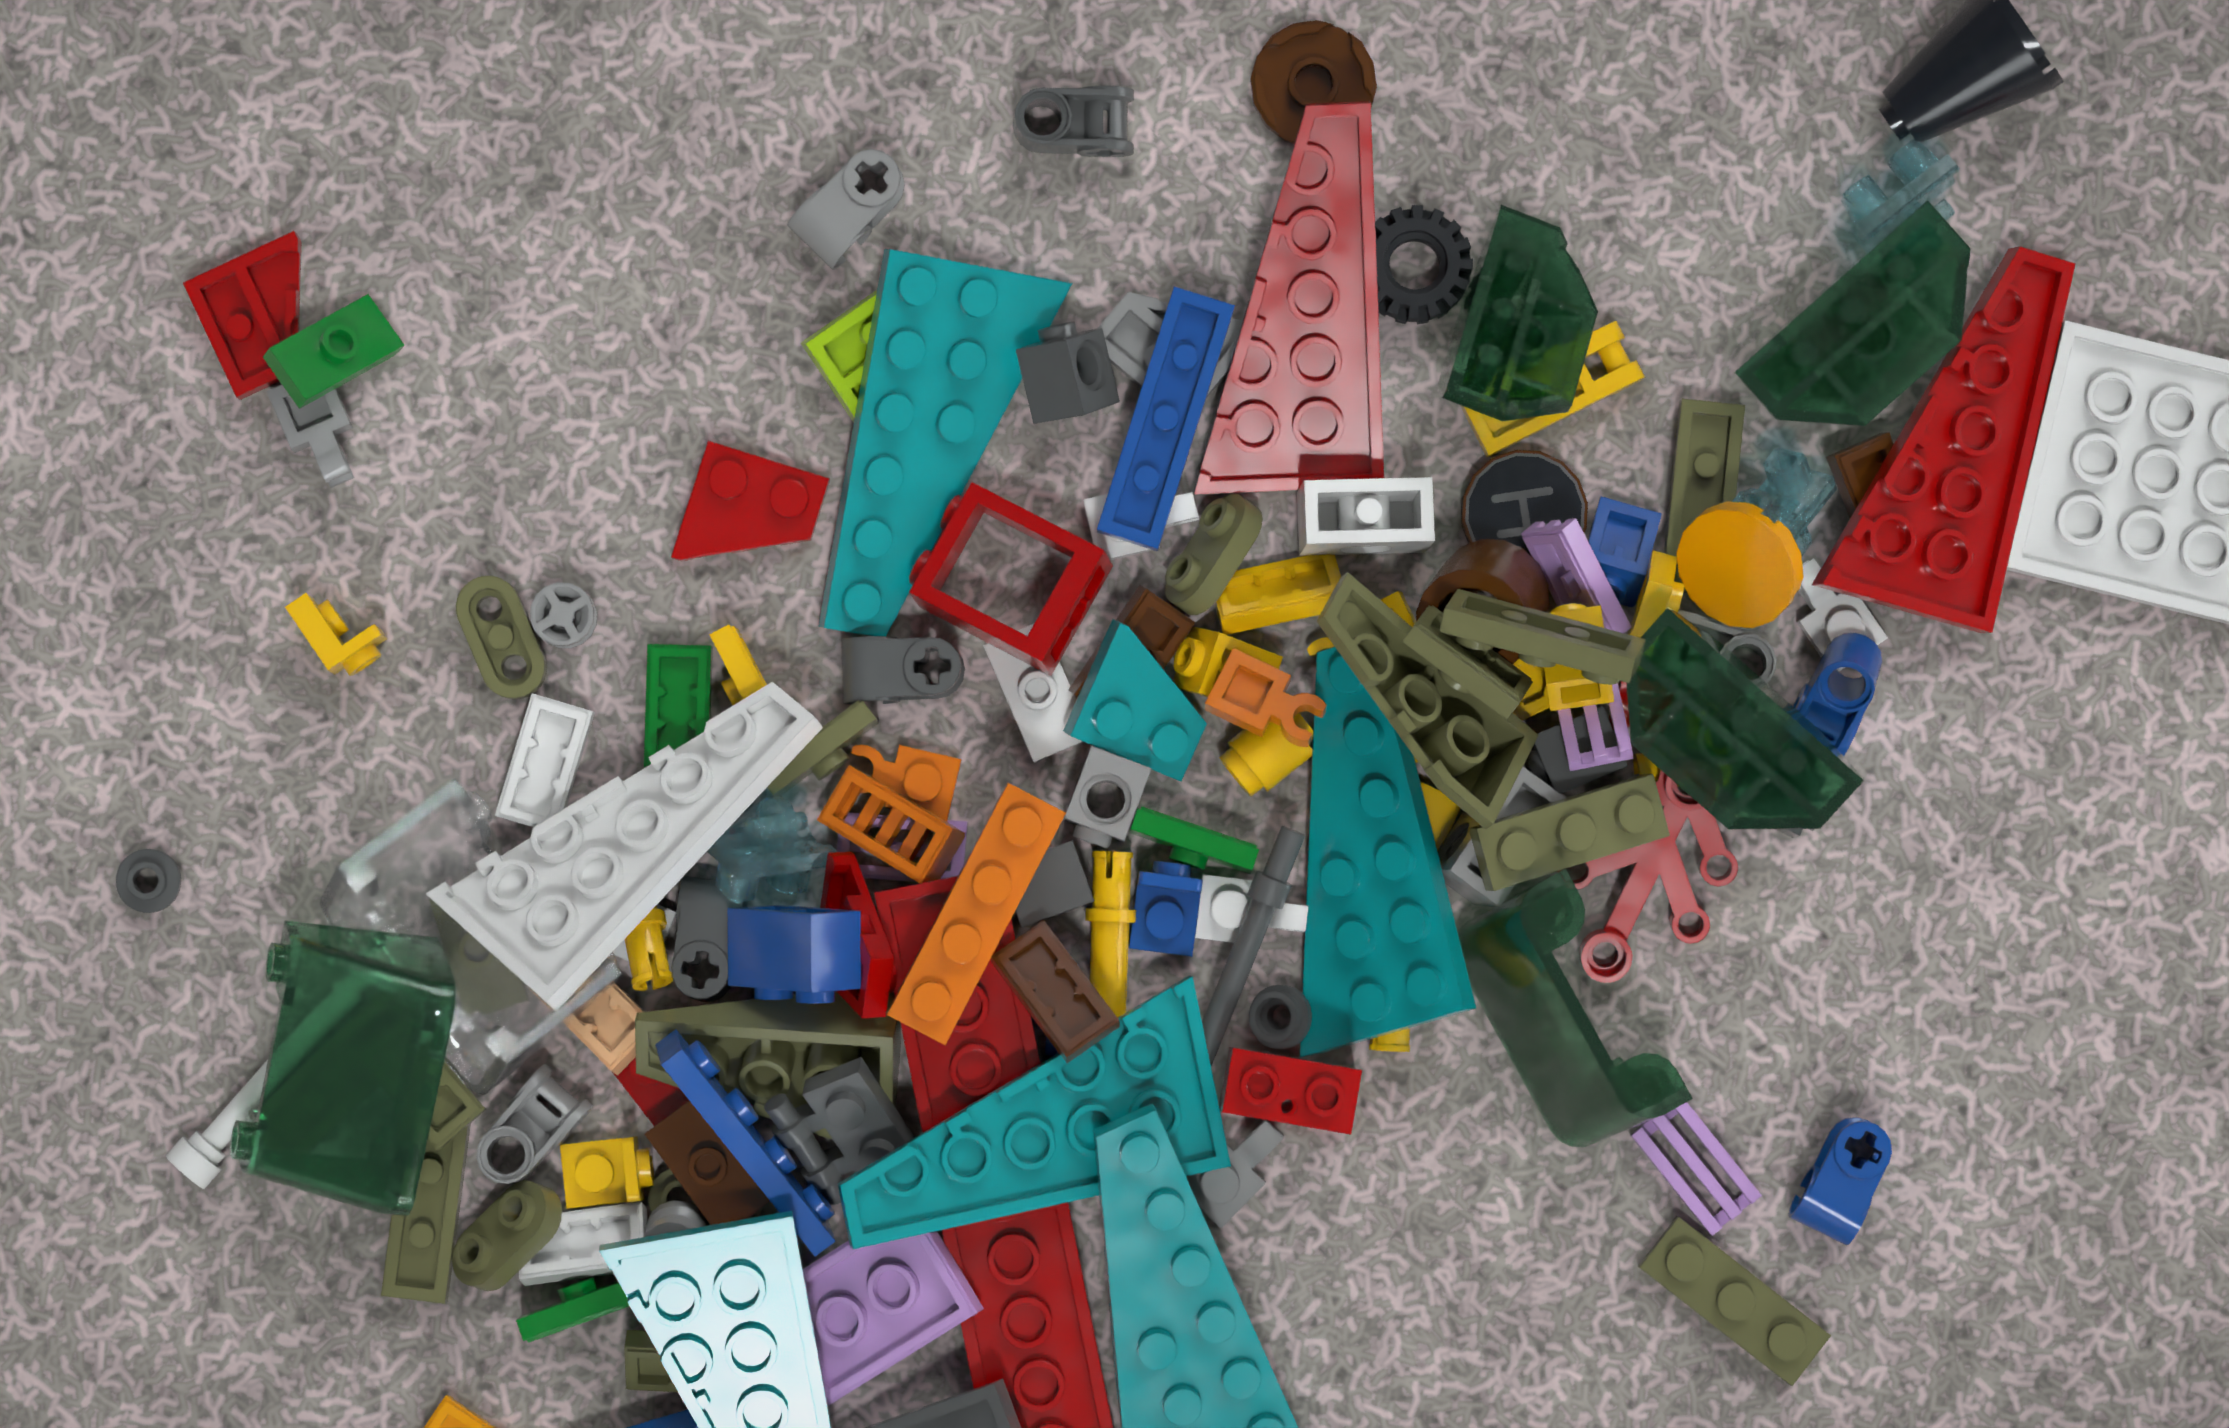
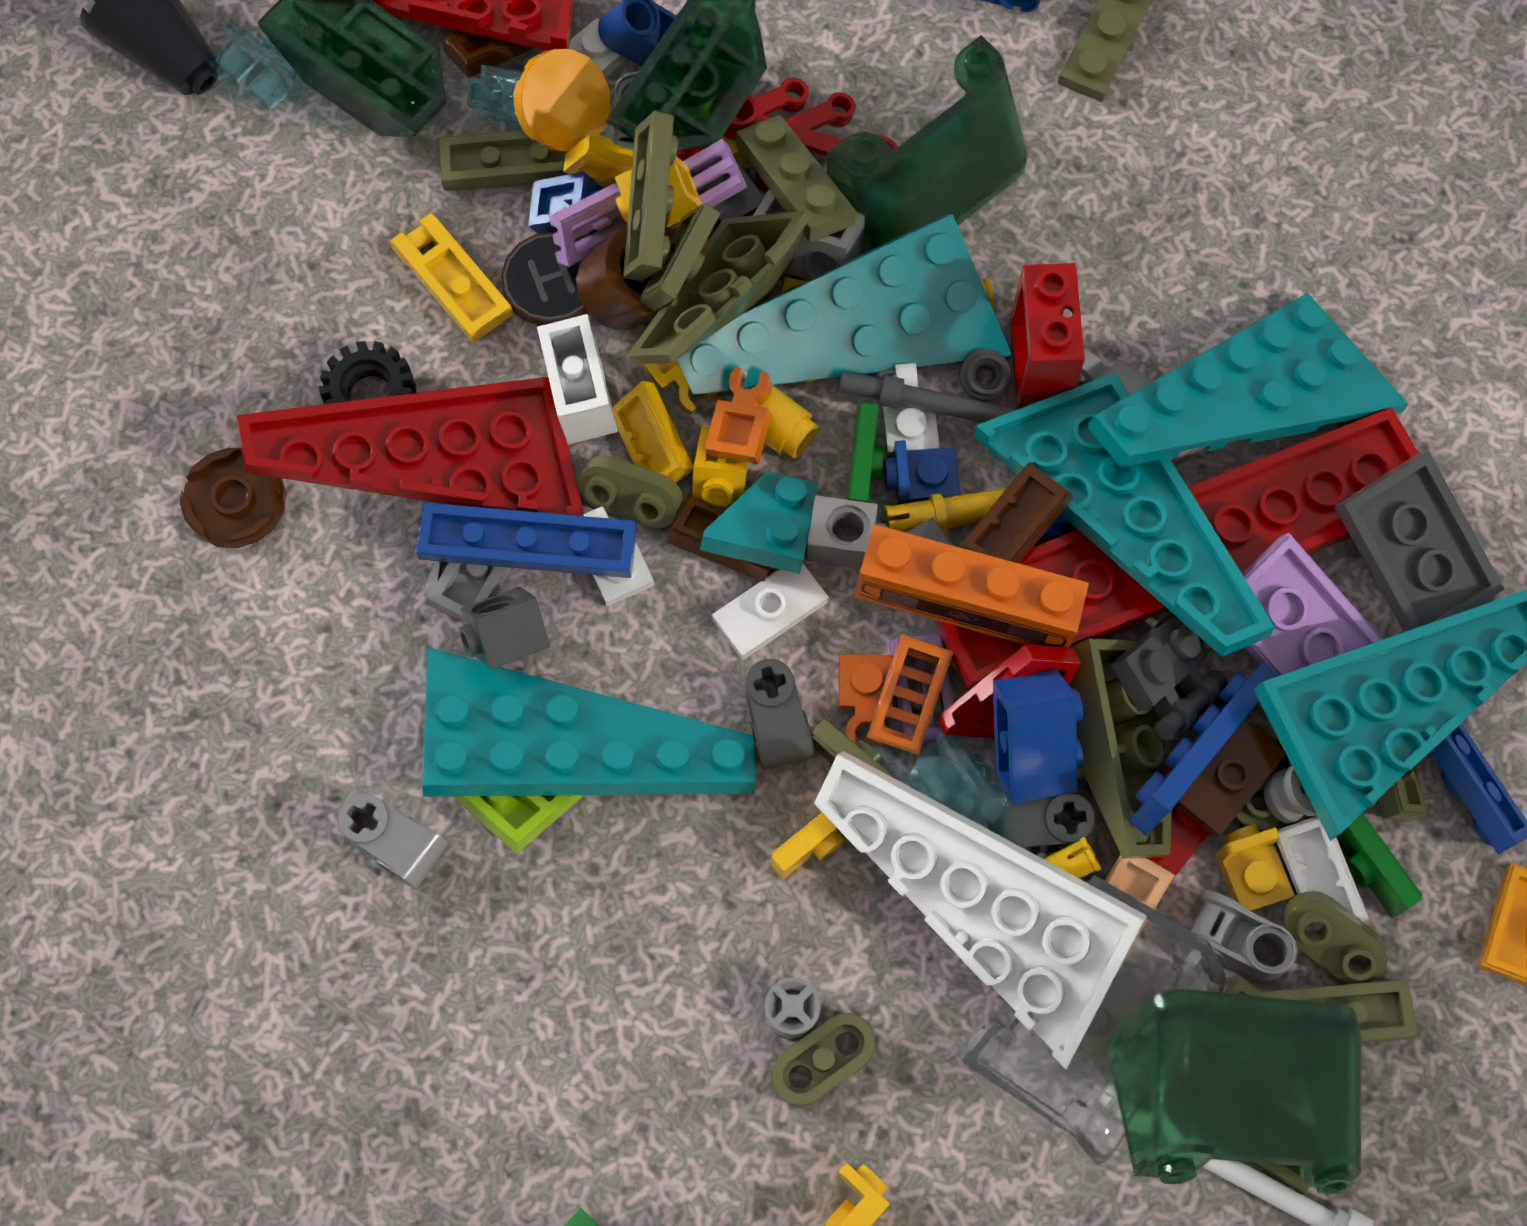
camera: 100 degrees left, 15 degrees down
(544, 761) = (924, 997): white plate -> none
(676, 695) = (845, 896): green plate -> none
(747, 505) = (663, 874): red wing -> none
(1064, 607) = (695, 585): red window -> none
(1080, 121) = (289, 663): dark grey piece -> none
(1520, 324) = (404, 297): clear green wedge -> none
(1730, 1207) = (1039, 48): lavender tile -> none

